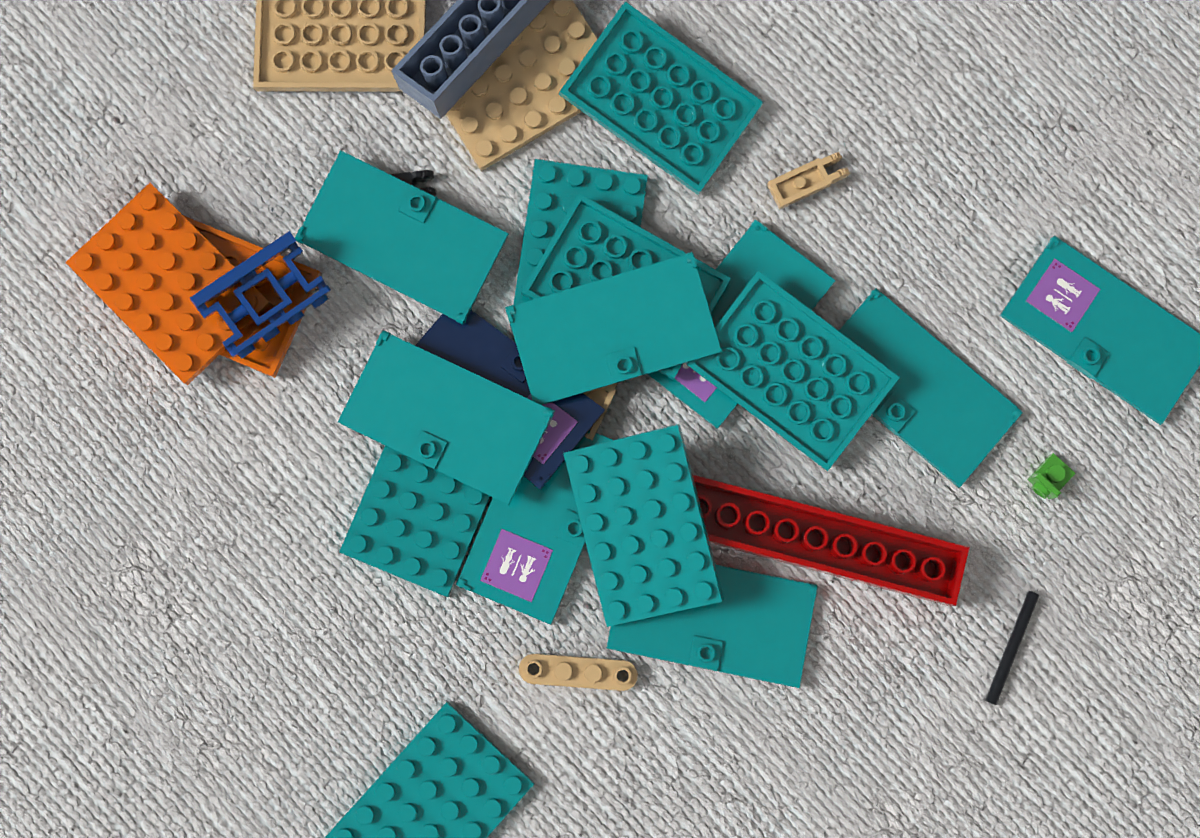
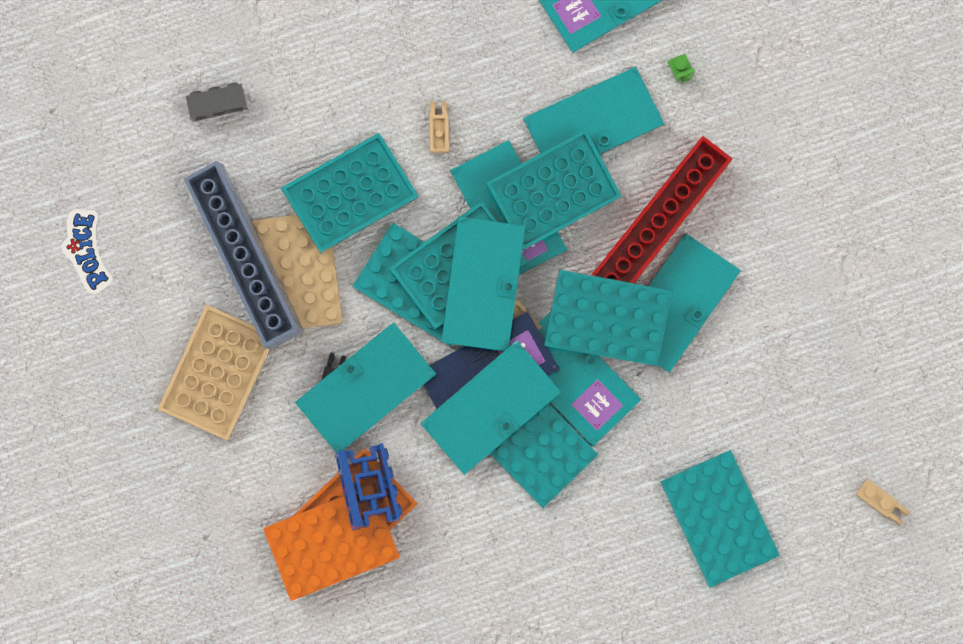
camera: 70 degrees left, 0 degrees up
(578, 672) = (676, 396): tan plate -> none
(1012, 647) = (770, 137): black bar -> none

